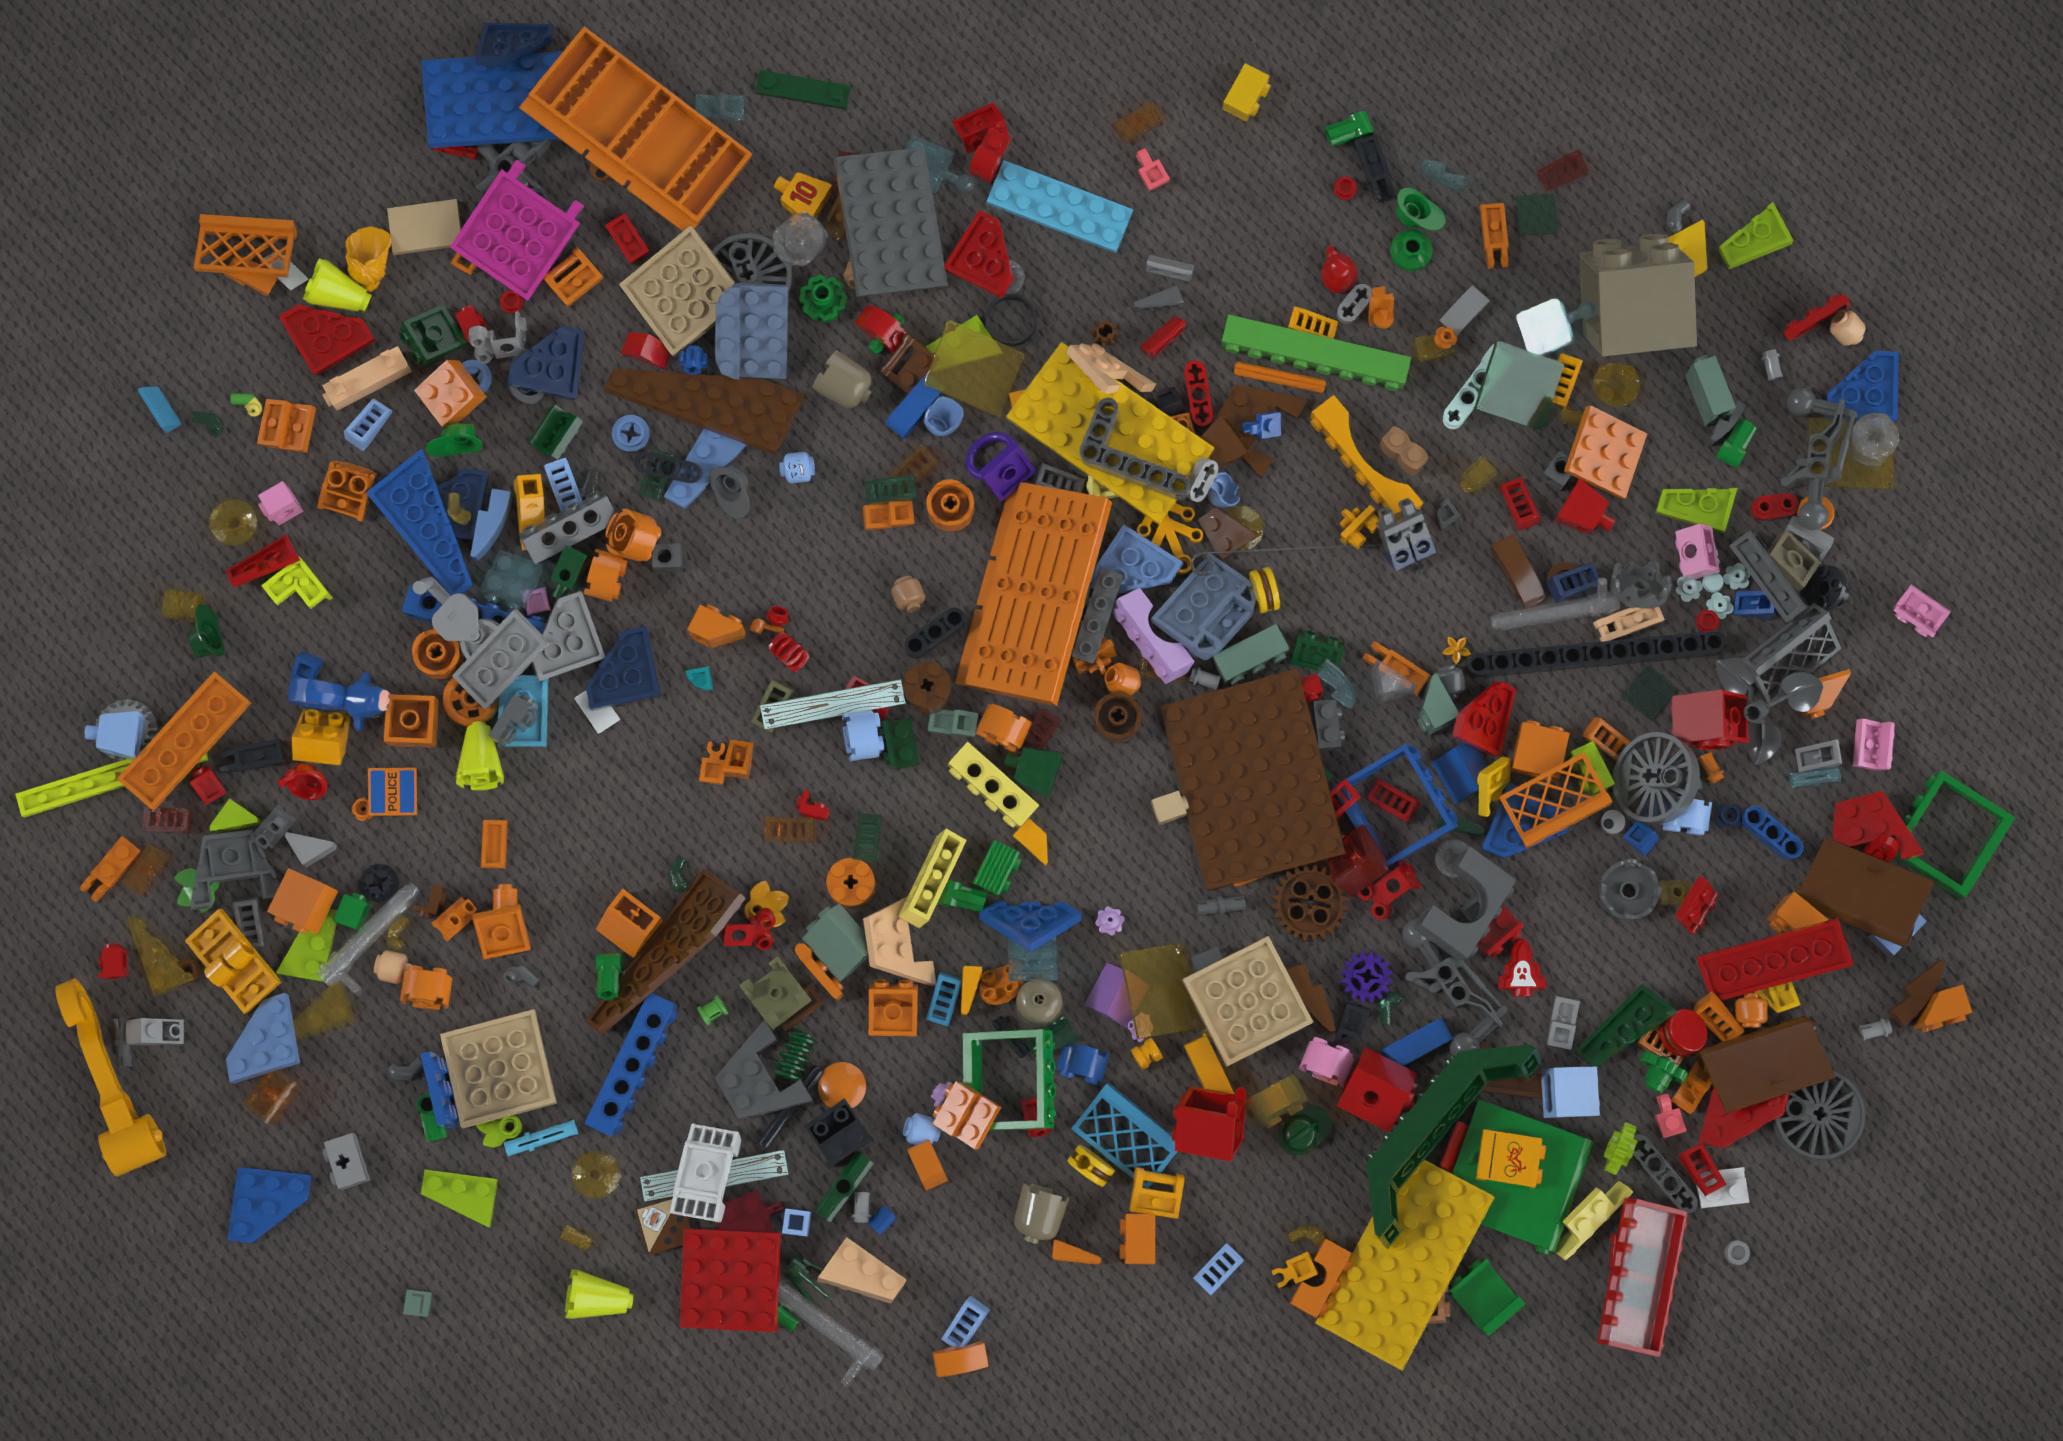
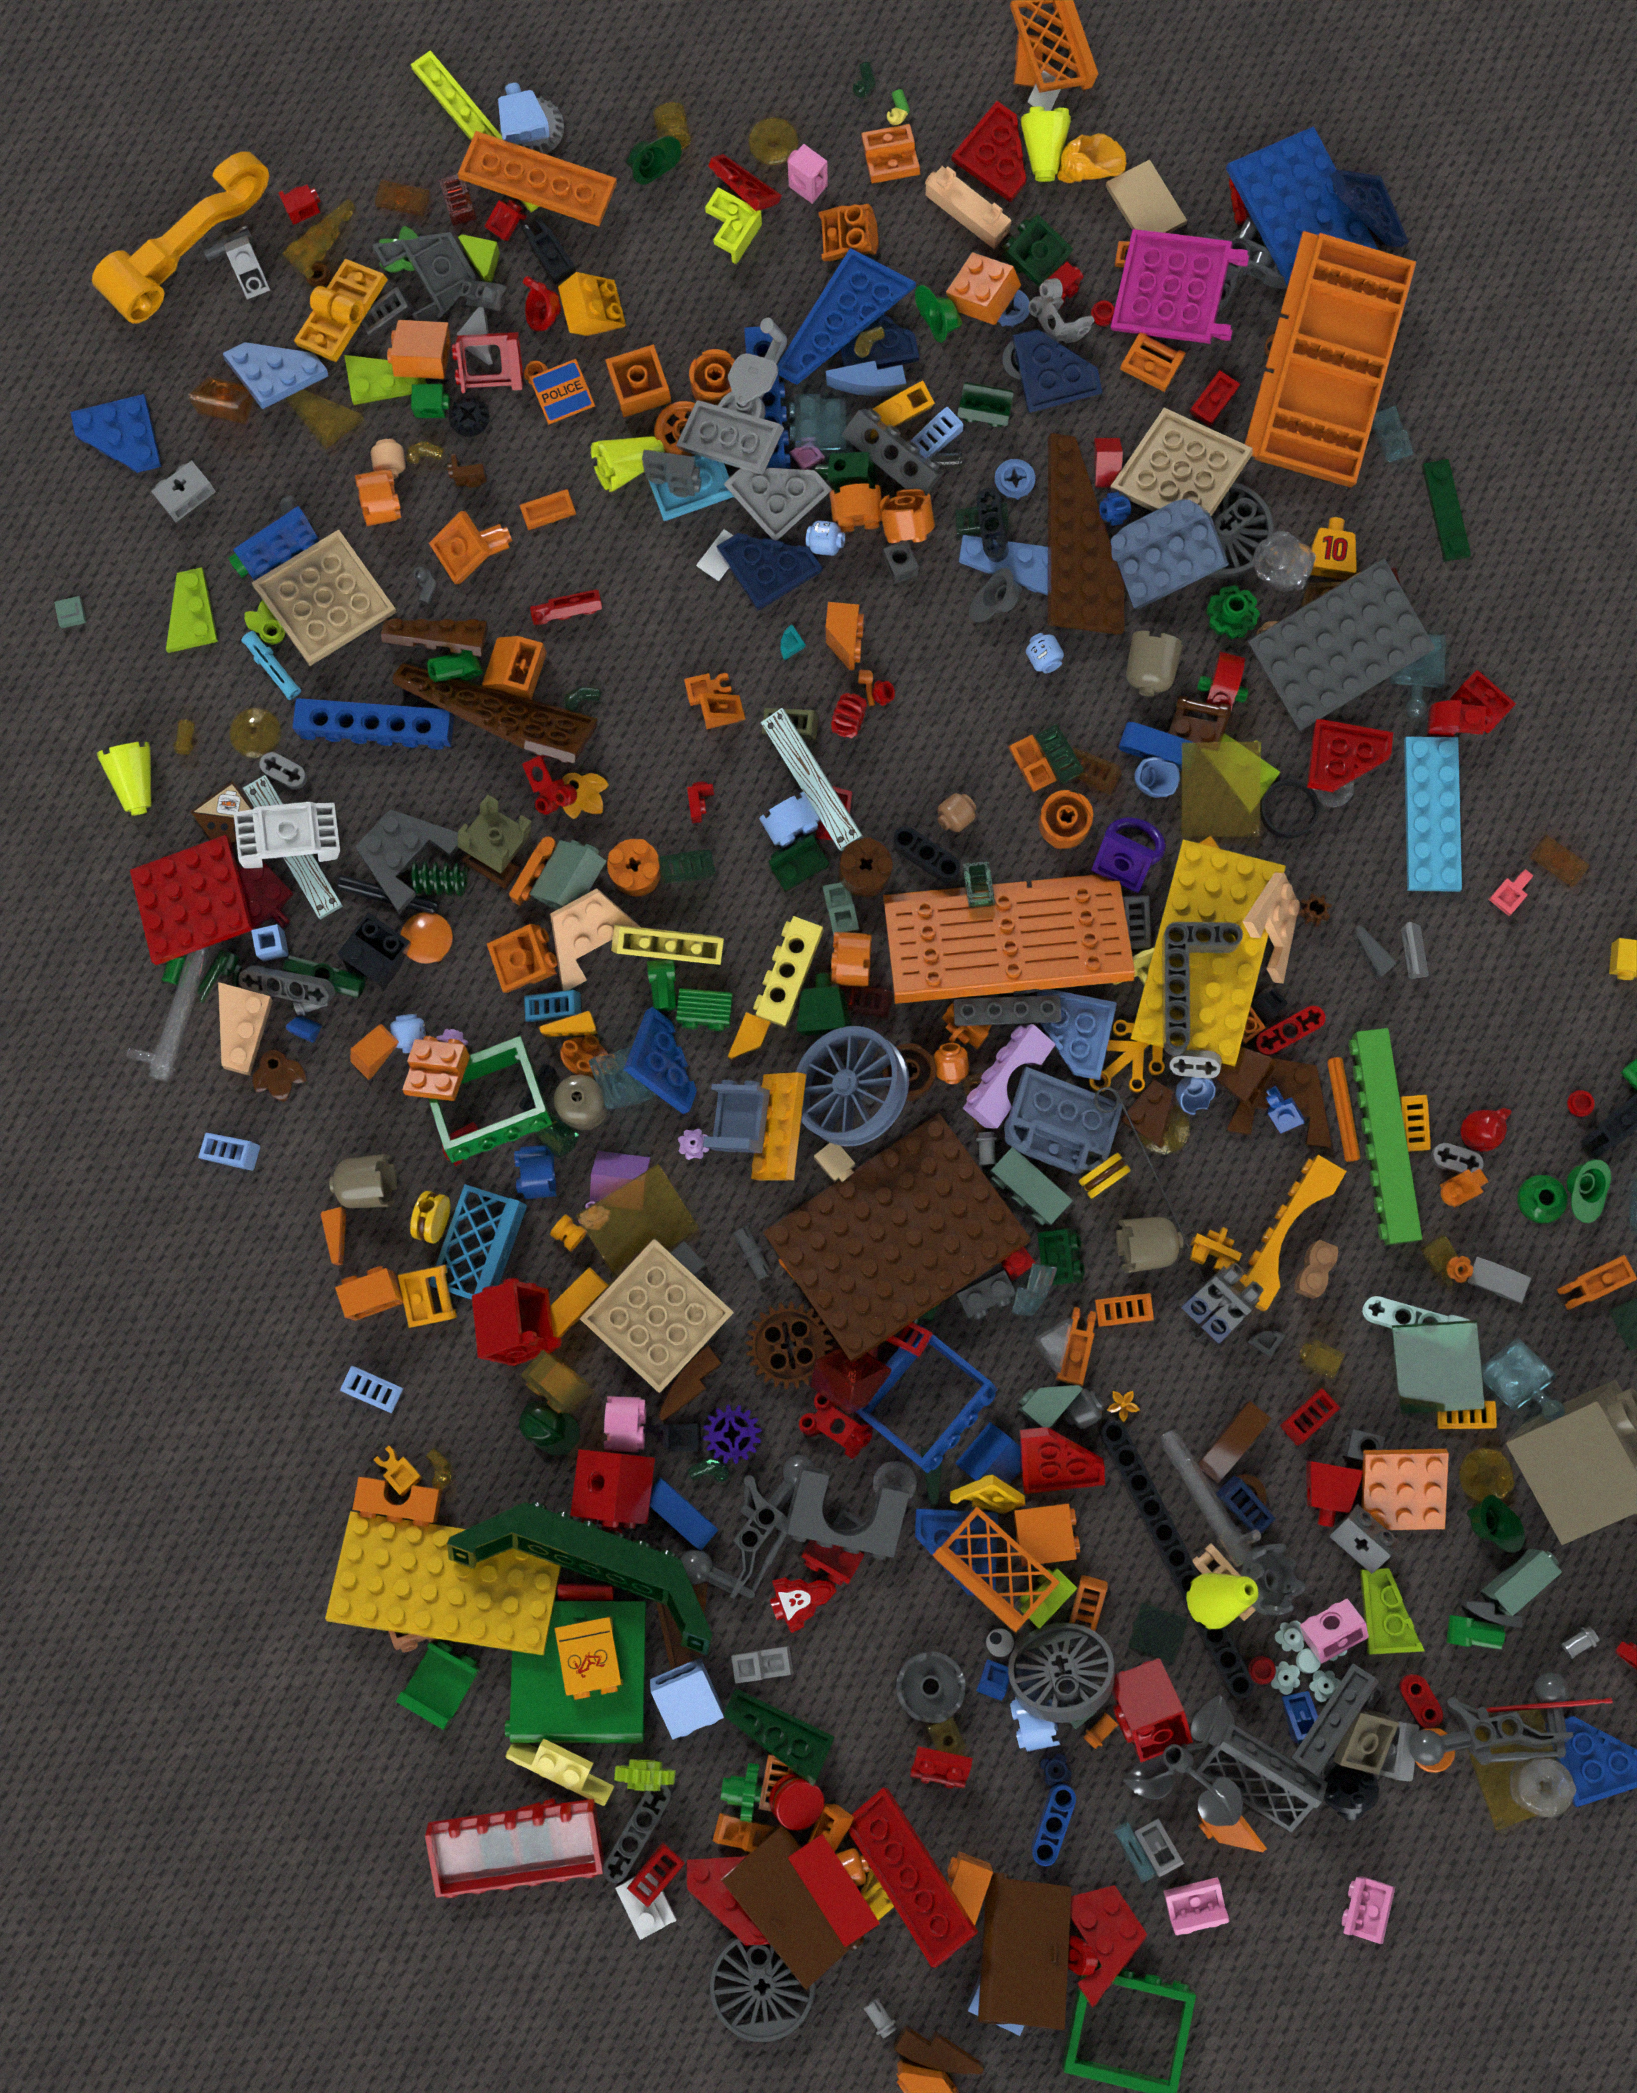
camera: 75 degrees right, 0 degrees up
(111, 867) = (392, 166): orange hinge -> none
(159, 408) = (860, 30): dark azure slope -> none
(306, 666) = (657, 266): blue slope -> none
(341, 961) = (377, 410): clear cylinder -> none
(347, 826) = (511, 361): none -> window
(359, 699) = (639, 322): blue animal -> none
(363, 442) = (912, 233): light blue slope -> none
(454, 918) = (456, 497): orange hips -> none
(572, 981) = (433, 634): none -> reddish brown wing
(592, 858) = (566, 607): none -> red hinge
(621, 613) = (825, 538): none -> light blue head
(638, 1155) = (286, 765): none -> light grey beam
(712, 1010) = (456, 781): bright green bush -> none
(810, 829) = (672, 804): clear orange slope -> none
(837, 1219) = (286, 982): none -> dark grey beam
(918, 1258) = (278, 1079): none -> reddish brown plate
(960, 1360) = (187, 1157): orange slope -> none
(966, 592) = (975, 871): none -> clear green slope
(1103, 873) = (739, 1117): none -> sand blue panel
(1113, 768) = (851, 1085): none -> sand blue wheel
(1123, 842) = (781, 1127): none -> light orange plate
(1163, 336) = (1336, 972): red slope -> none
(1333, 577) = (1148, 1243): none -> dark tan cylinder
(1374, 606) = (1147, 1308): none -> orange slope
(1410, 813) = (925, 1418): red slope -> none
(1570, 416) = (1429, 1437): clear yellow pin -> none
(1633, 498) = (1364, 1539): none -> dark grey brick
(1642, 628) = (1220, 1598): none -> neon yellow cone
(1657, 391) = (1497, 1523): none -> dark green piece
(1669, 1120) = (699, 1819): coral plate -> none
(1737, 1252) = (581, 1945): light grey tile -> none
(1764, 1026) = (833, 1890): none -> red sticker
(1813, 407) = (1549, 1705): none -> red piece

